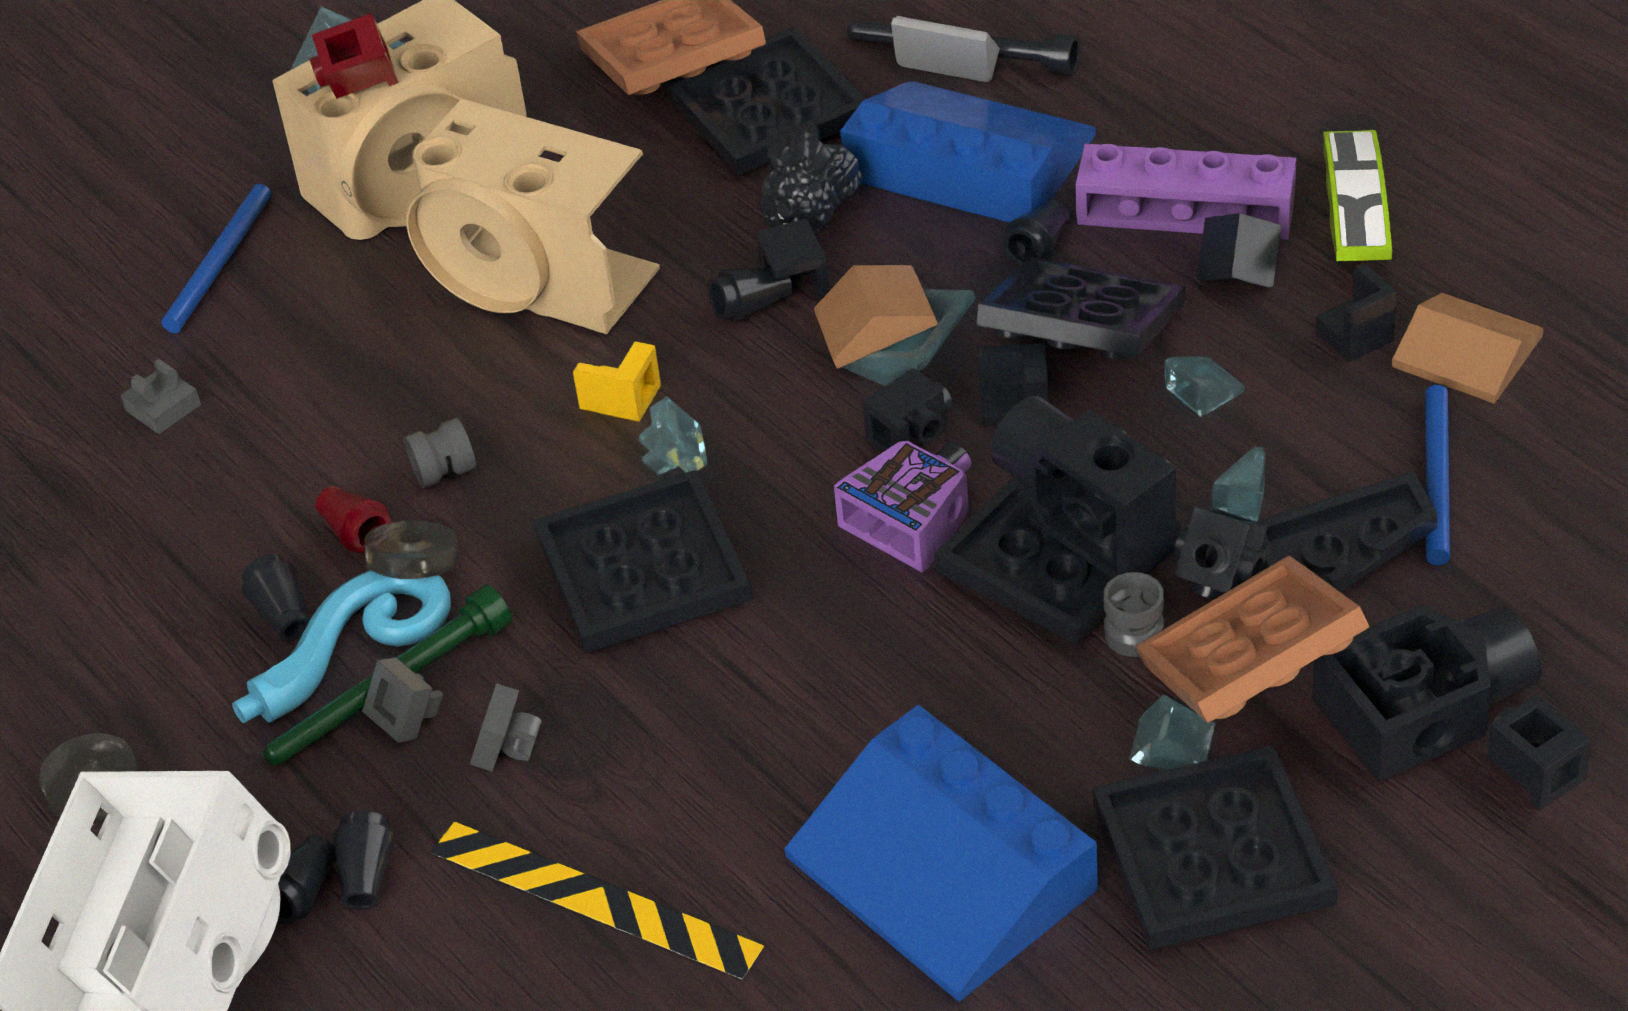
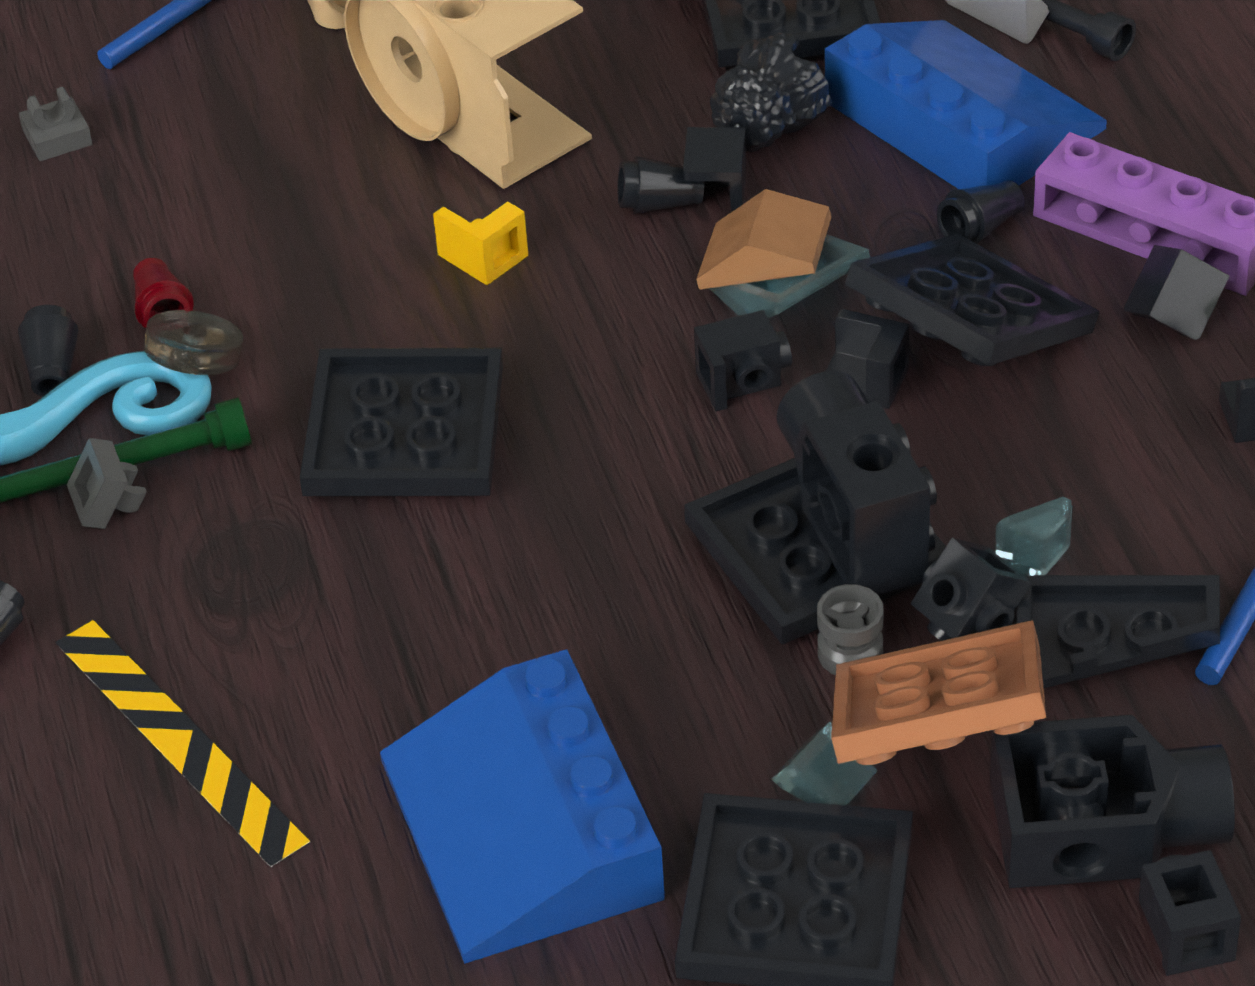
camera: 20 degrees right, 0 degrees up
(440, 452) = (272, 256): dark grey wheel -> none
(504, 731) = (177, 545): dark grey tile -> none
(672, 439) = (501, 311): clear light blue tile -> none
(906, 500) = (691, 441): medium lavender torso -> none
(1200, 383) = (1063, 415): clear light blue slope -> none

